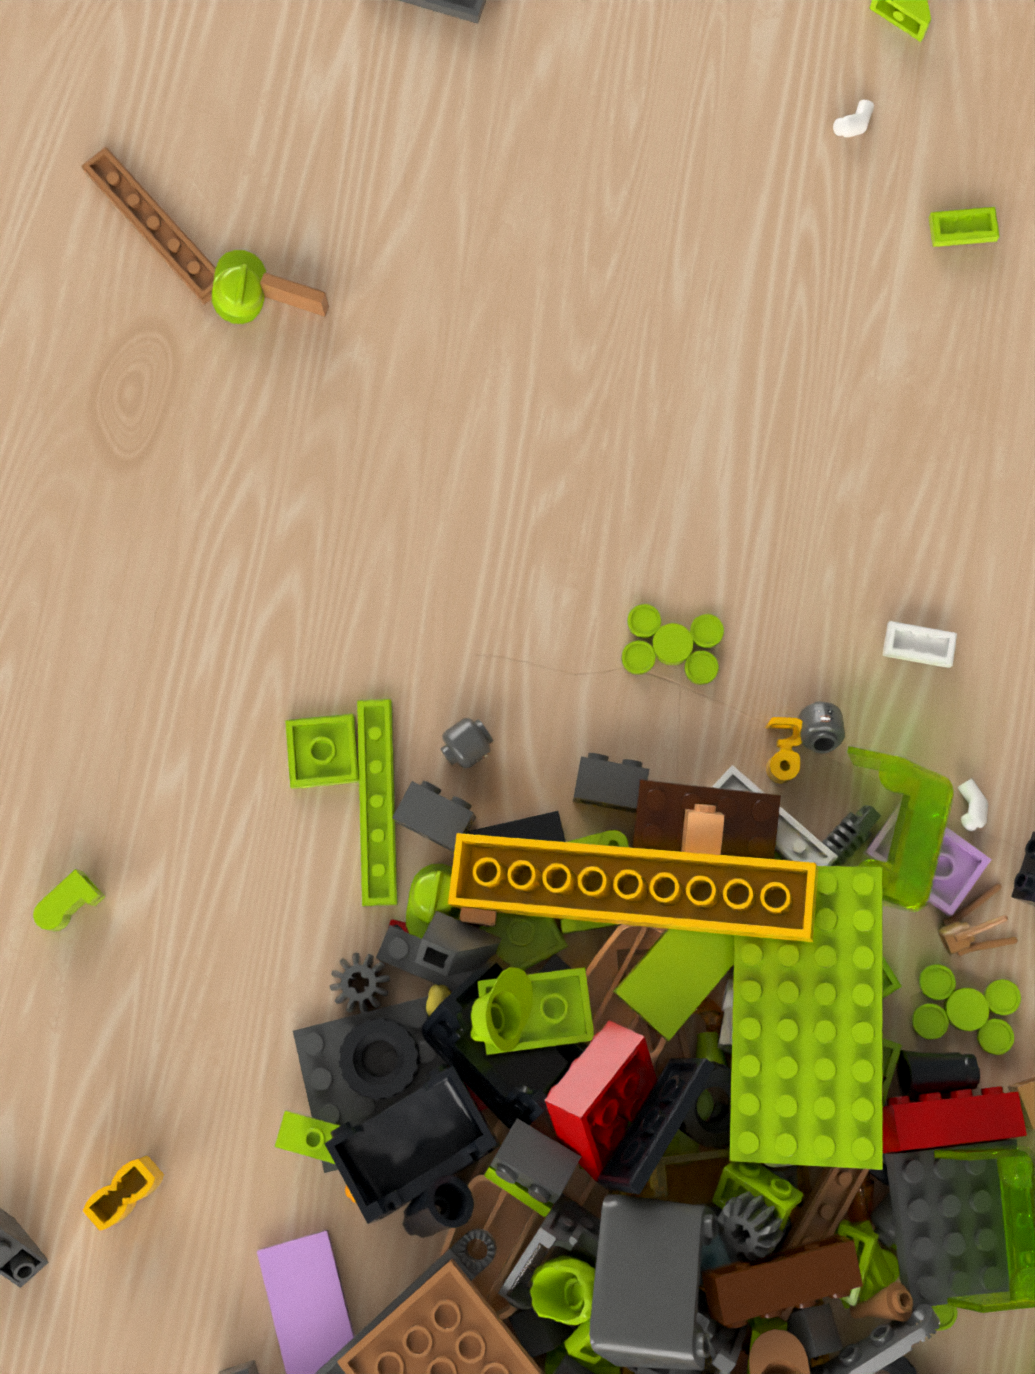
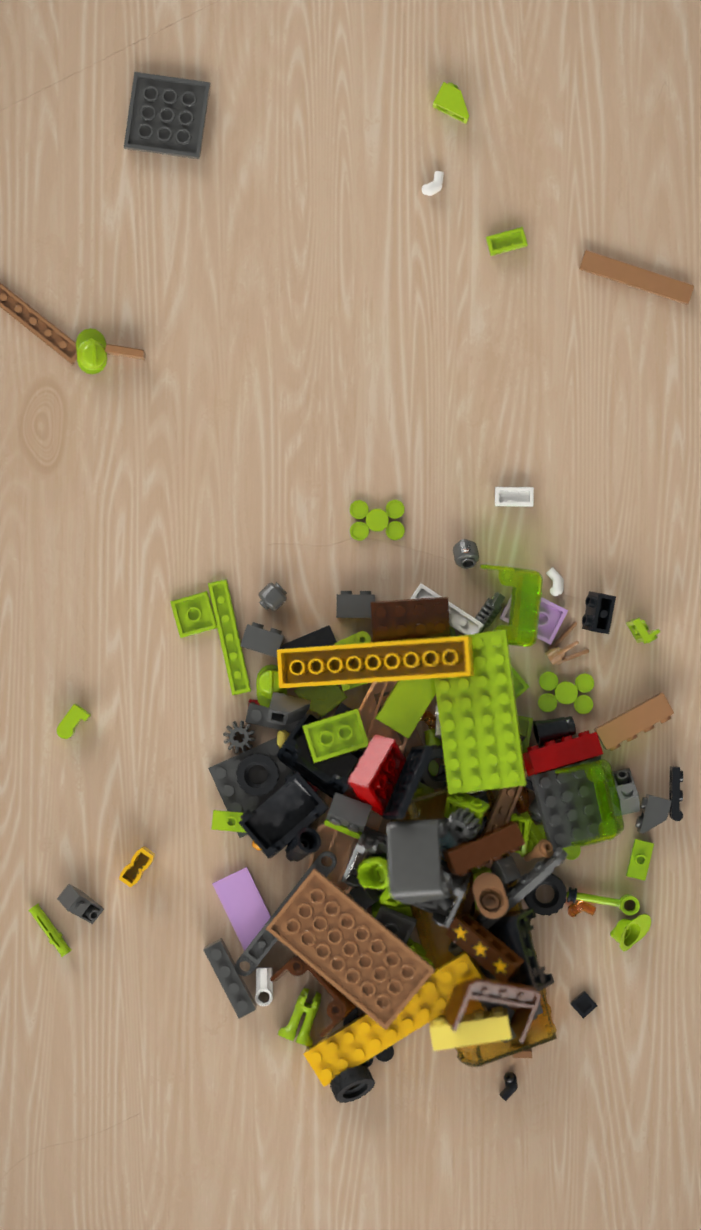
camera: 15 degrees left, 10 degrees up
(478, 917) = (297, 691): medium nougat tile -> none
(503, 1011) = (319, 739): lime piece -> none
(703, 830) = (408, 626): light nougat brick -> none
(785, 763) = (449, 577): yellow leg -> none

